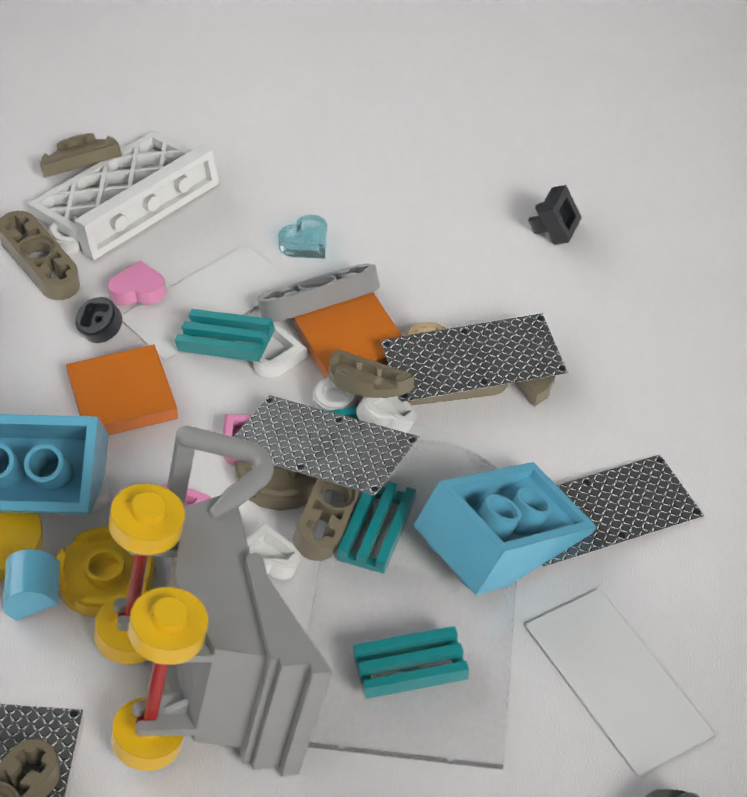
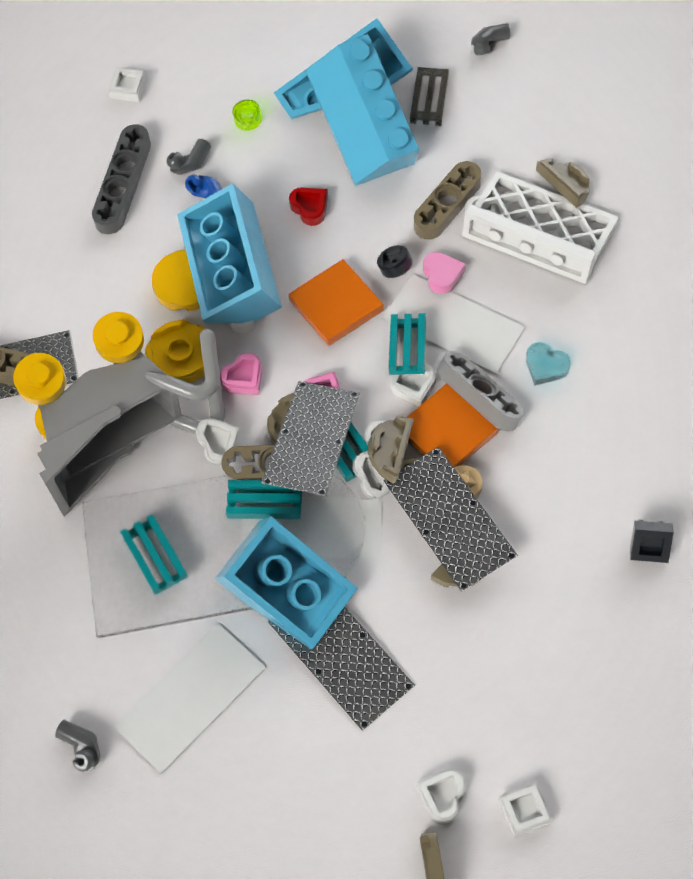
camera: 80 degrees right, 15 degrees up
(30, 583) = (149, 312): medium azure brick -> none

